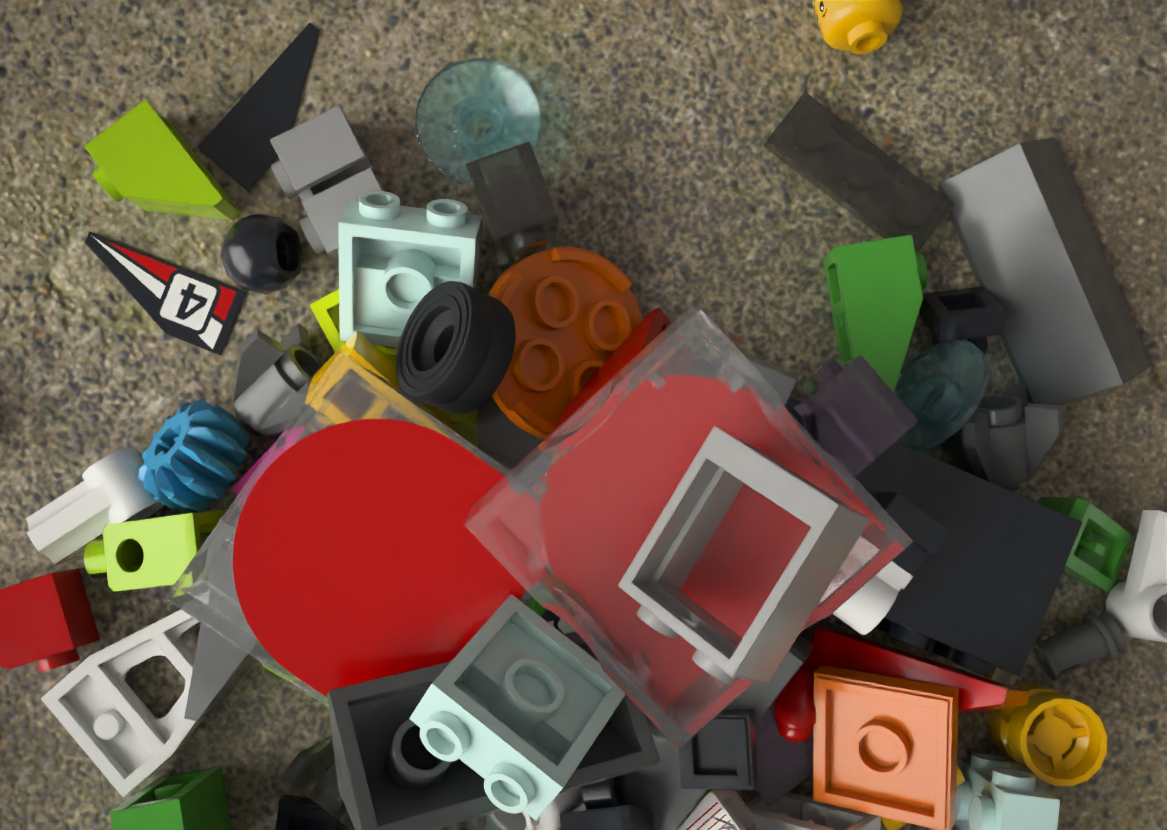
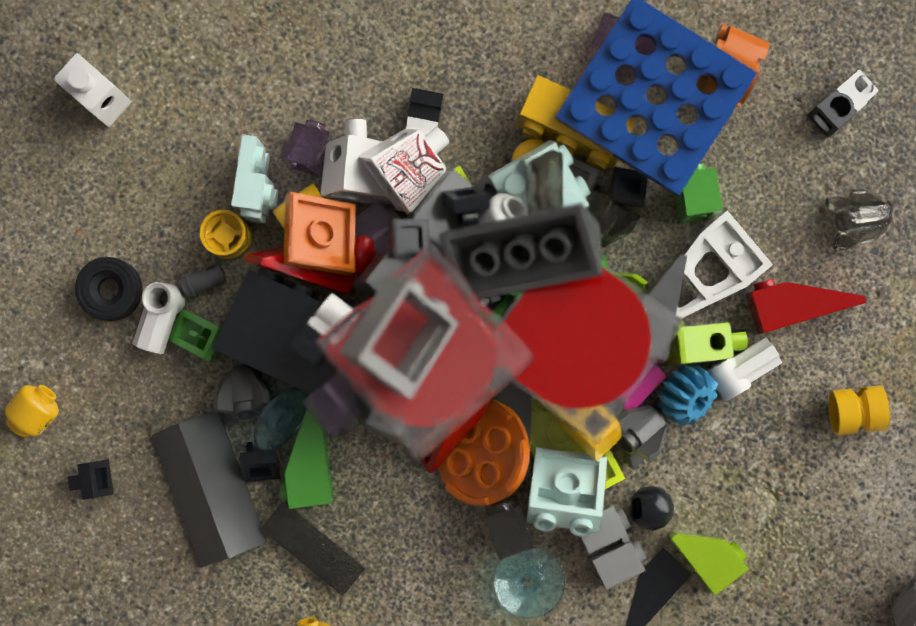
camera: 175 degrees left, 0 degrees up
(174, 297) = (702, 485): sticker -> none
(455, 348) = (540, 447): black tyre -> none
(518, 708) = (508, 266): light aqua plate -> none

